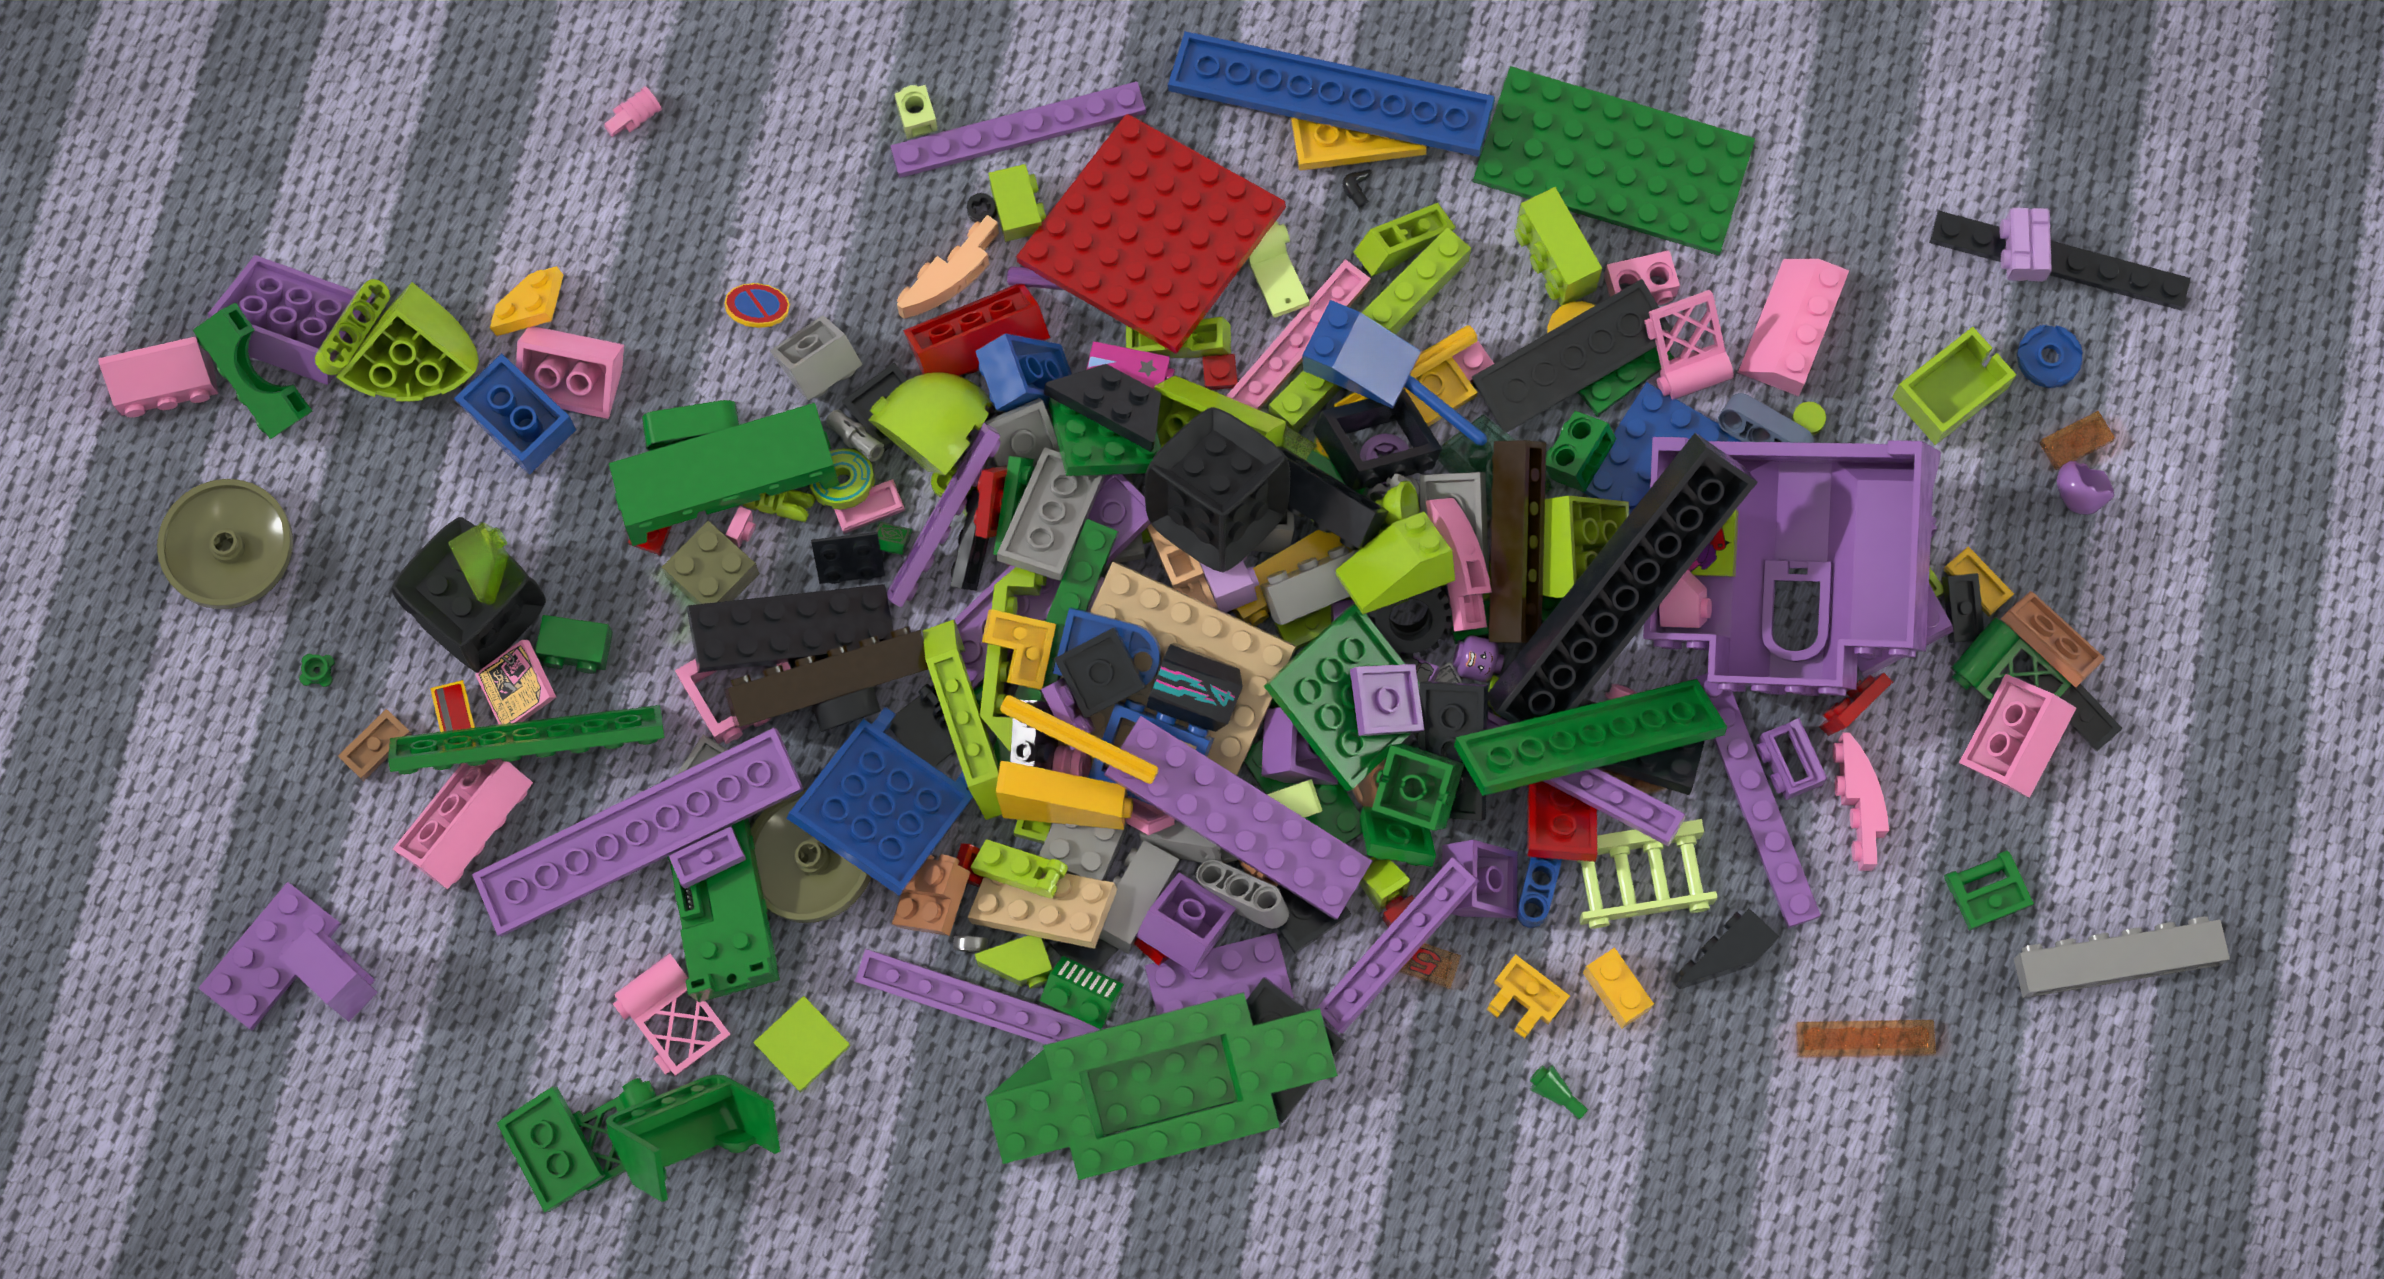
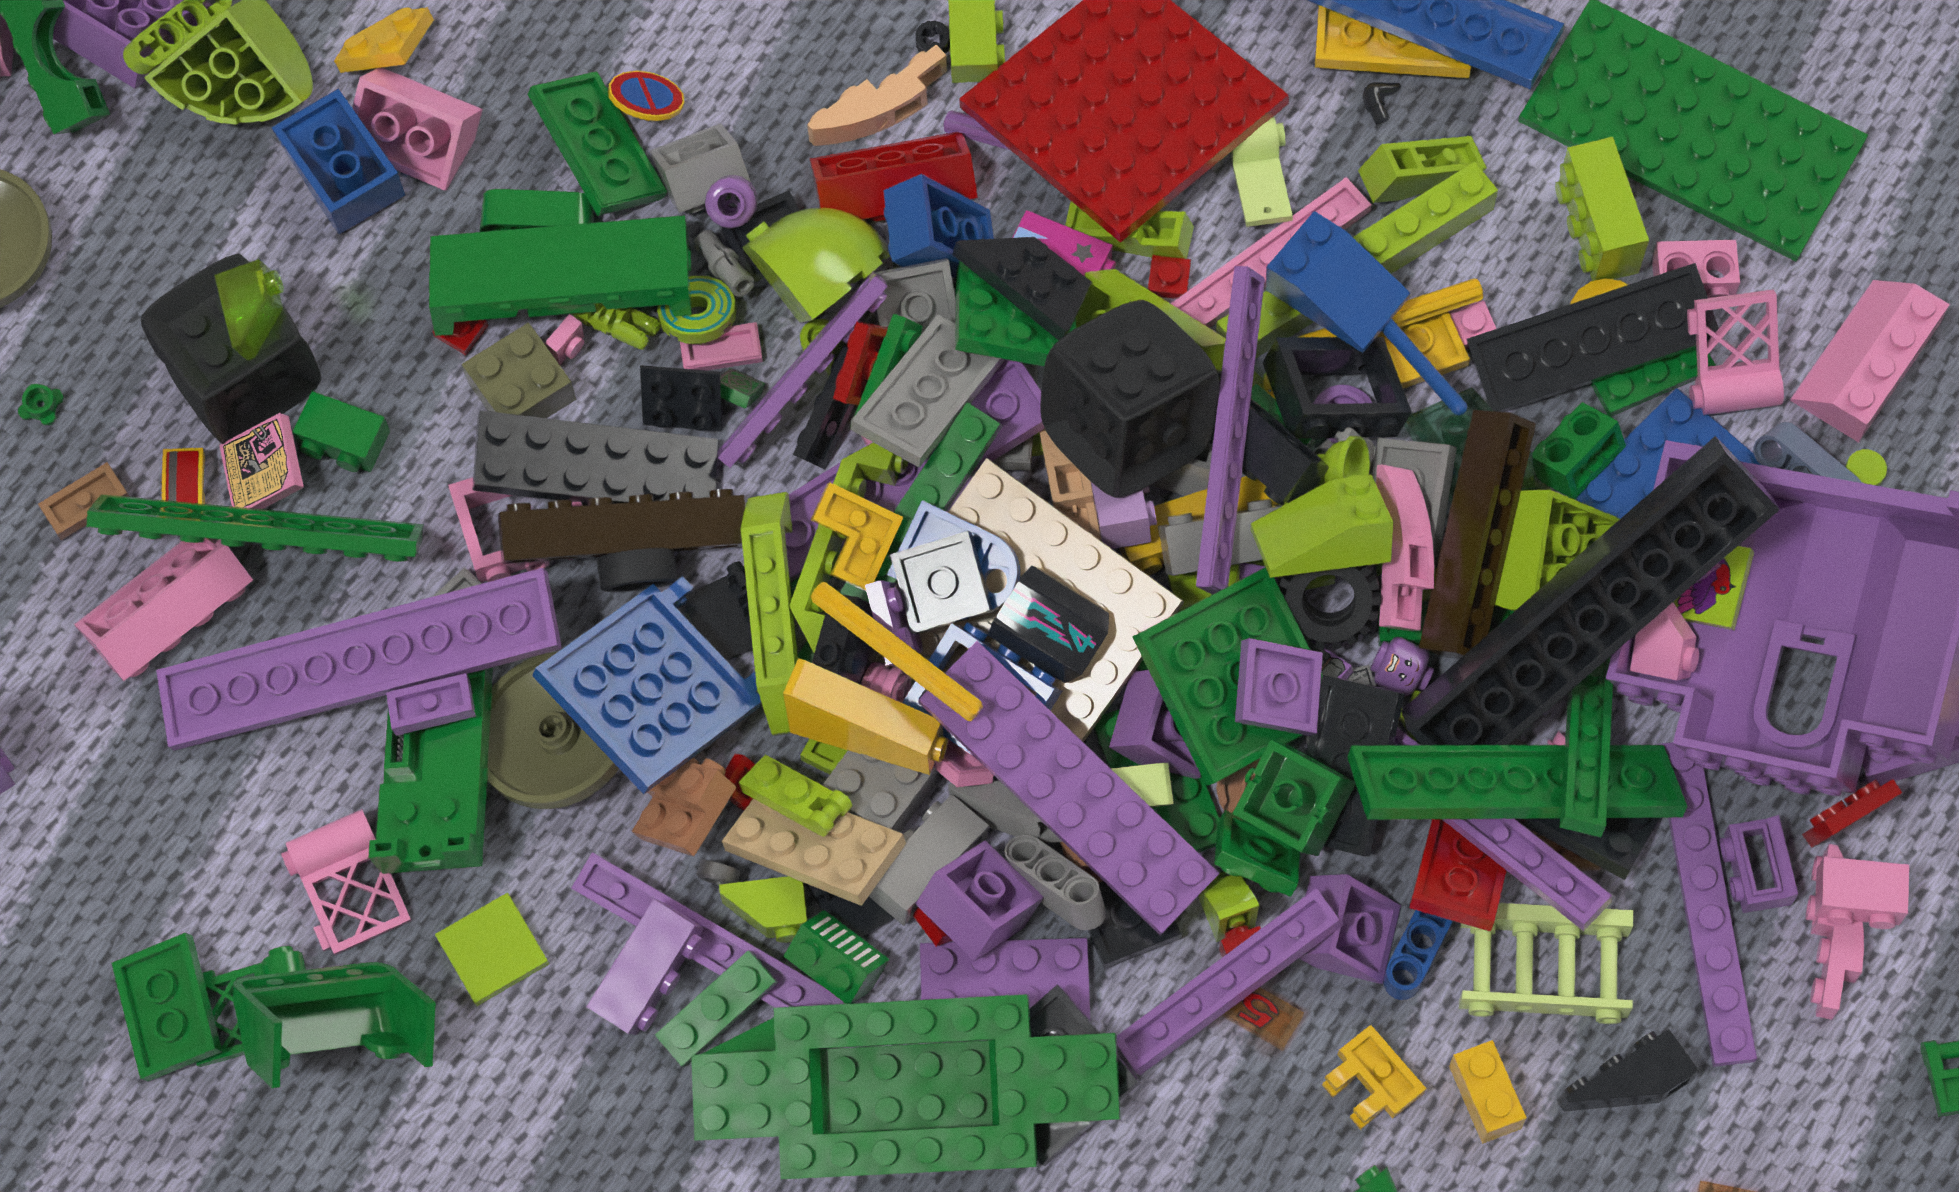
camera: 15 degrees right, 5 degrees down
(726, 354) = (597, 143): none -> green tile
(848, 394) = (719, 208): none -> medium lavender head
(932, 1034) = (646, 968): none -> brick
(995, 1053) = (716, 1008): none -> green plate
(1304, 498) = (1230, 430): none -> medium lavender tile
(1642, 705) = (1587, 754): none -> green plate
(1877, 767) = (1862, 892): none -> bright pink brick

